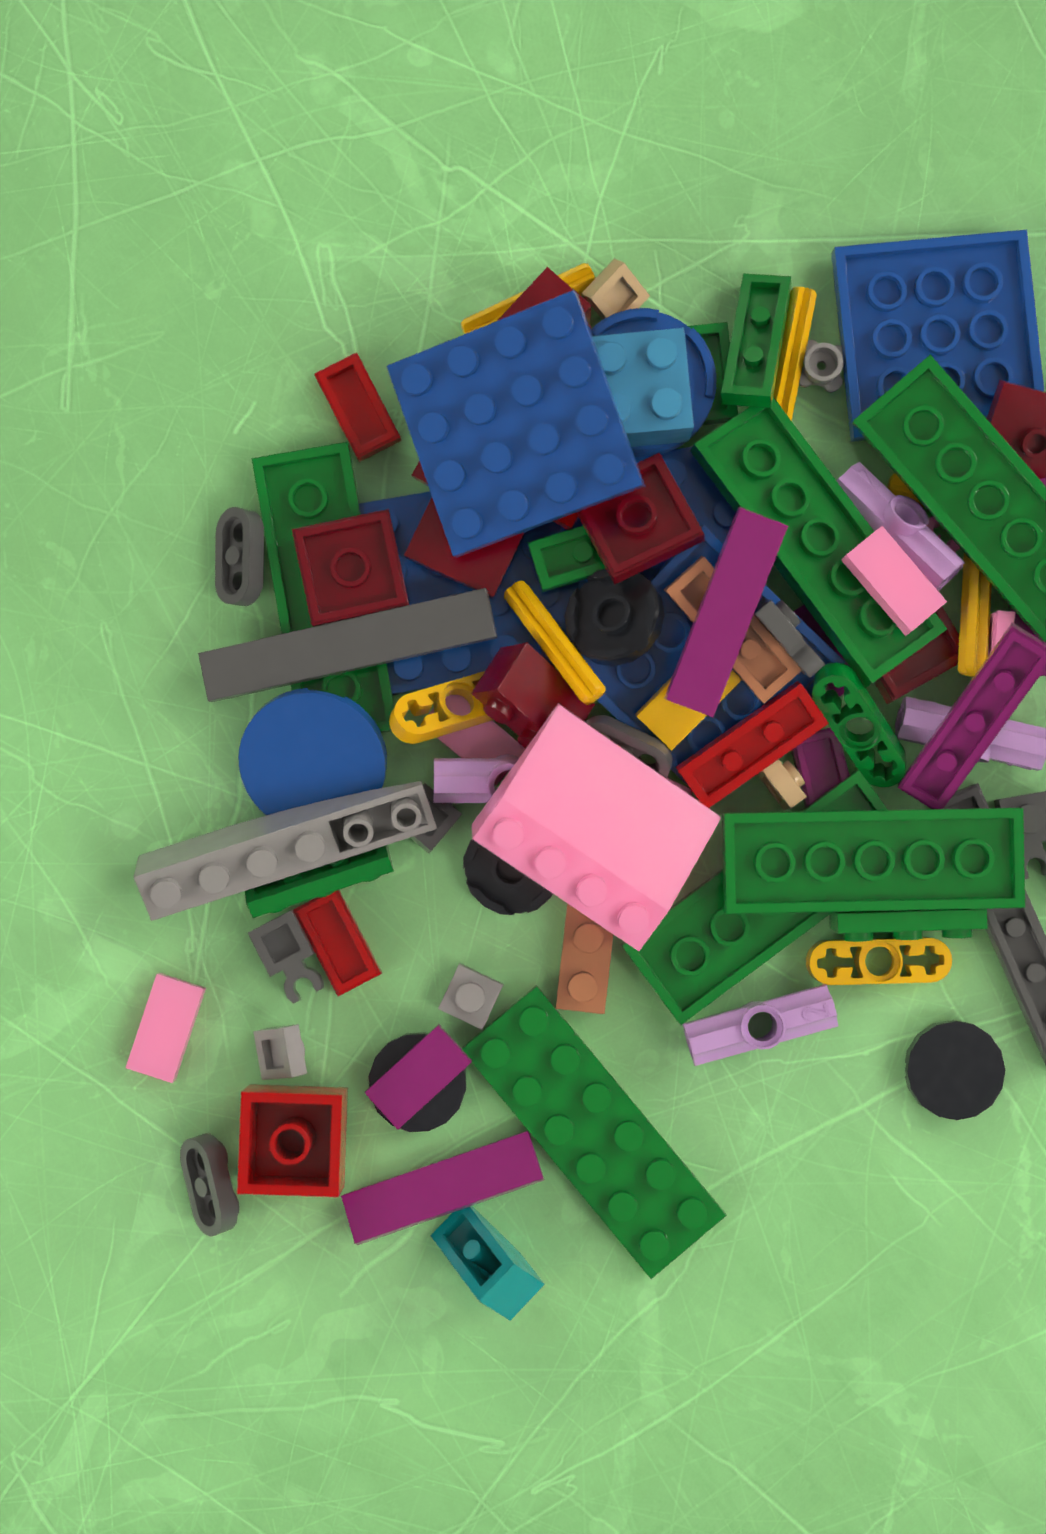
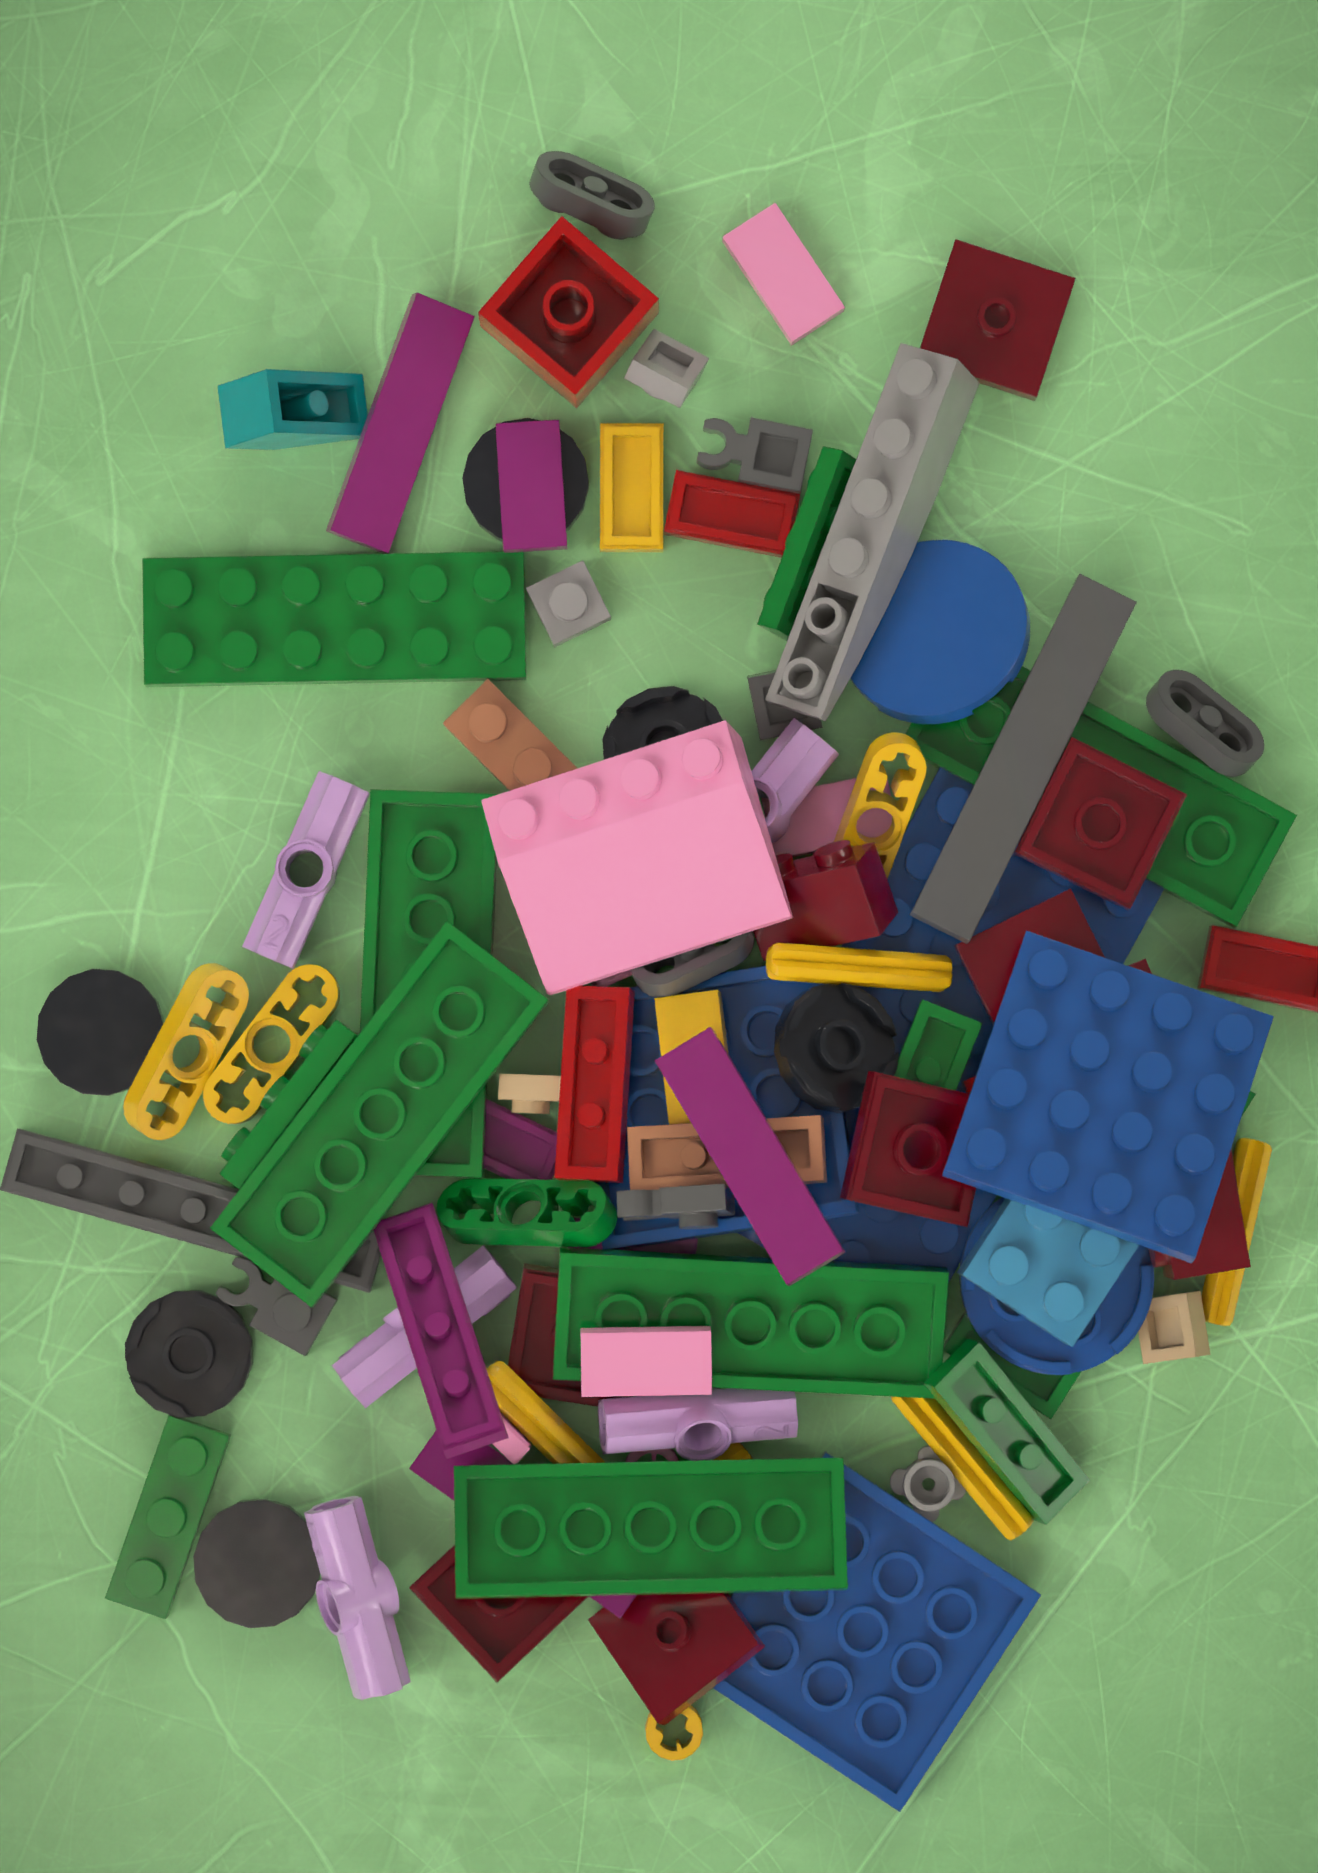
camera: 125 degrees right, 0 degrees up
(89, 876) = (998, 317): none -> dark red plate
(369, 1015) = (631, 487): none -> yellow tile
(894, 1030) = (178, 1024): none -> yellow beam

